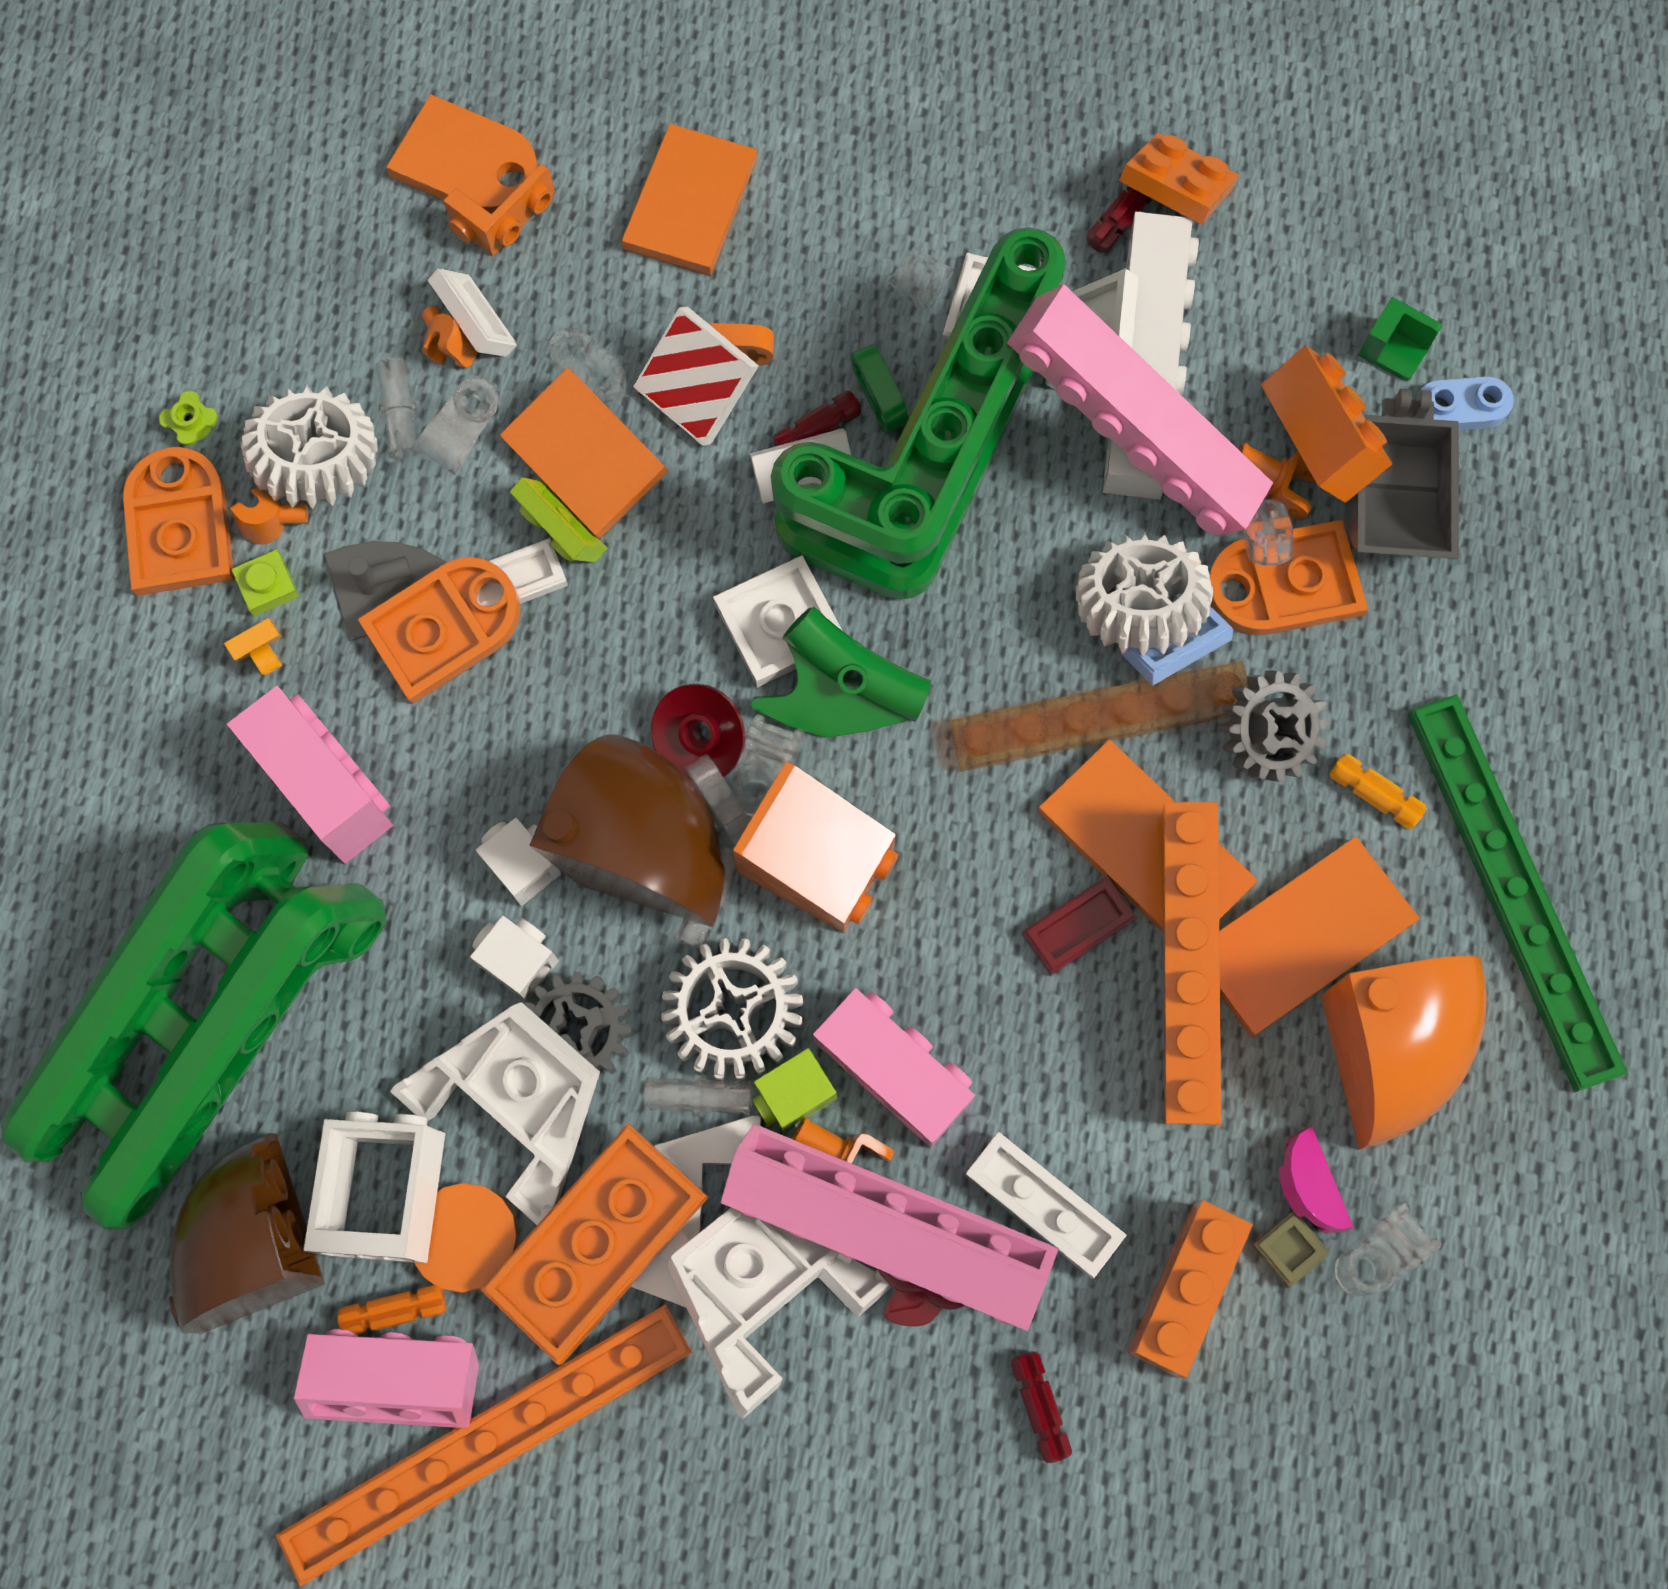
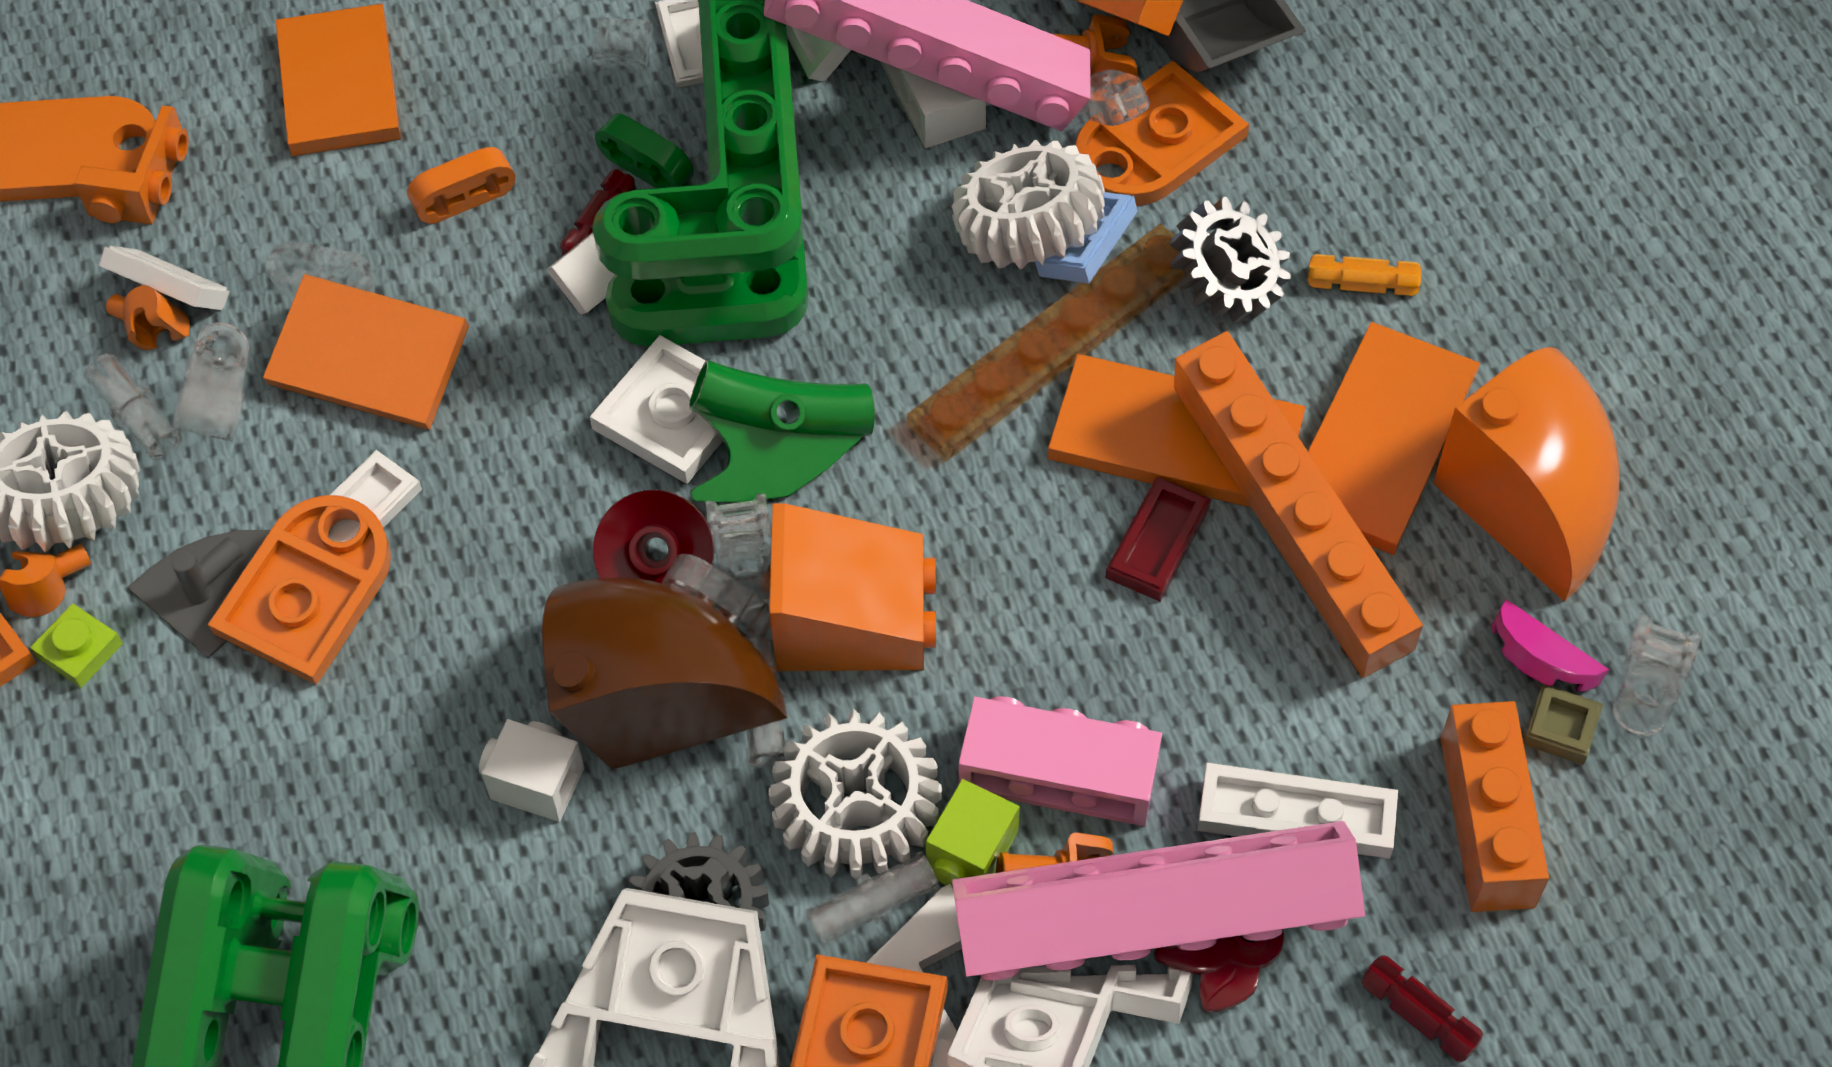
camera: 30 degrees left, 15 degrees down
(256, 643) = (106, 705): light orange tile -> none
(313, 772) = (248, 789): bright pink brick -> none
(514, 955) = (583, 864): white brick -> none
(546, 510) = (353, 422): lime plate -> none
(695, 376) = (446, 224): white tile -> none
(1517, 894) = (1554, 301): green tile -> none

